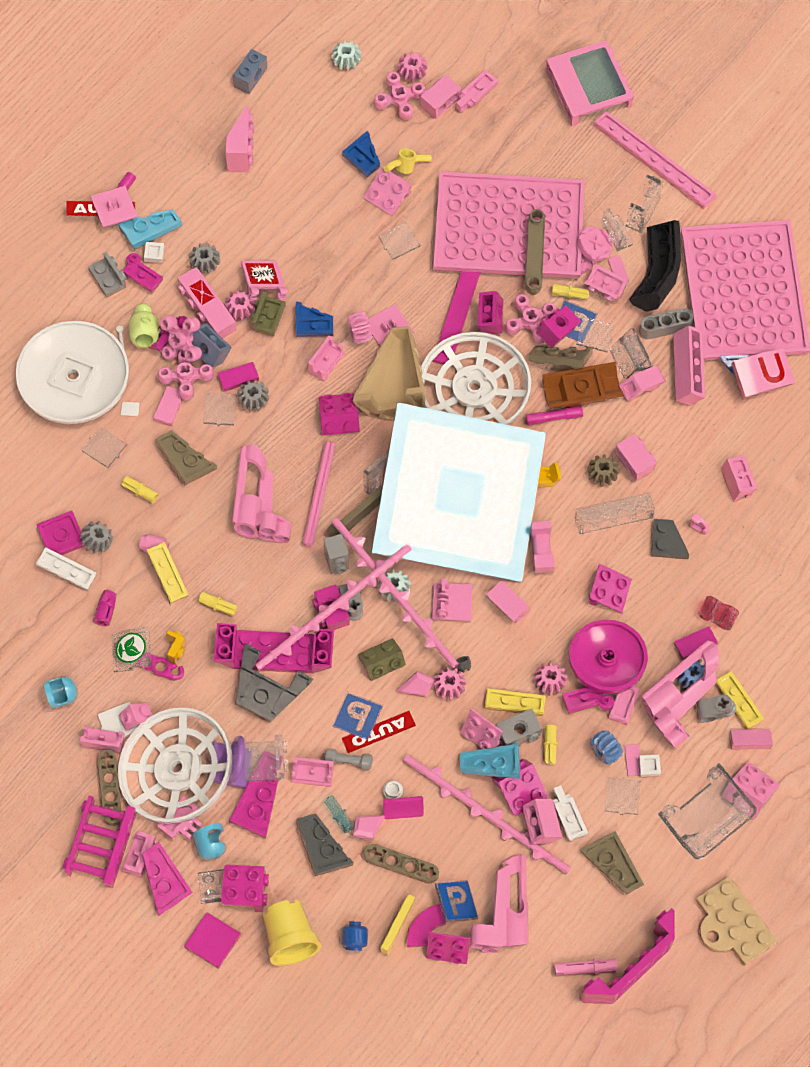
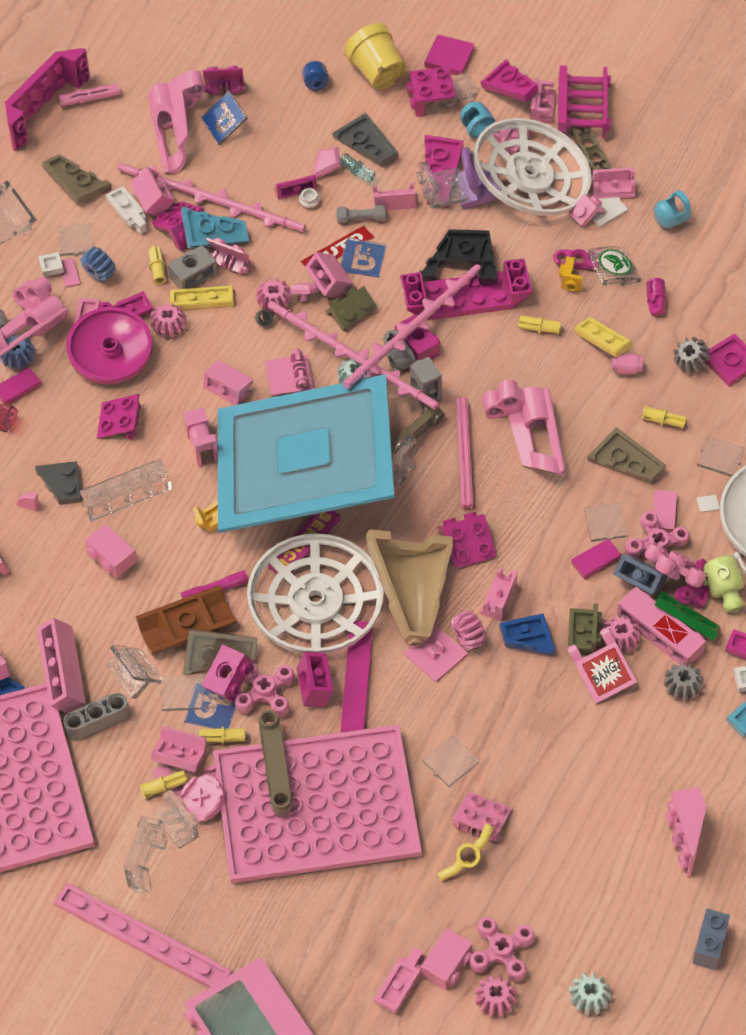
camera: 170 degrees right, 10 degrees down
(66, 569) = (712, 325): white tile -> none
(183, 303) = (687, 615): none -> green tile
(246, 393) = (571, 536): light grey gear -> none
(362, 155) = (527, 858): blue wing -> none
(394, 689) = (329, 275): none -> bright pink brick
(397, 924) = (276, 92): light yellow tile -> none
(403, 859) = (286, 139): dark tan beam -> none
(423, 924) = (252, 98): dark pink tile -> none
(596, 470) = (146, 534): dark tan gear -> none
(622, 262) = (163, 784): none -> light yellow axle
(643, 381) = (116, 634): bright pink slope -> none
(663, 266) = (111, 775): black piece -> none

